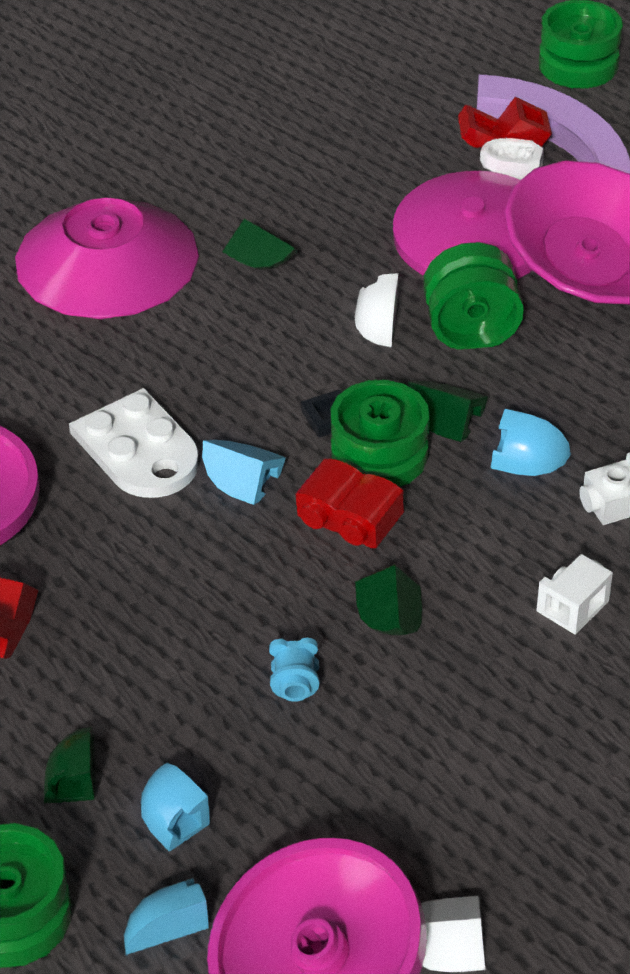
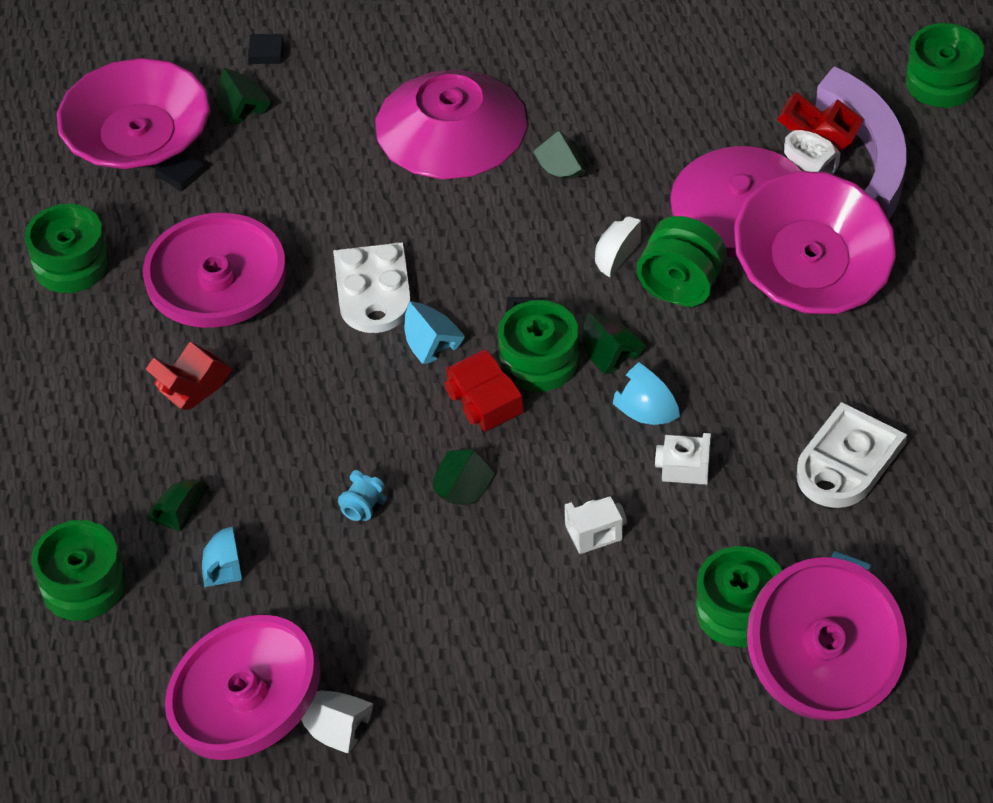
camera: 30 degrees right, 5 degrees up
(166, 916) = (172, 627): medium azure brick -> none

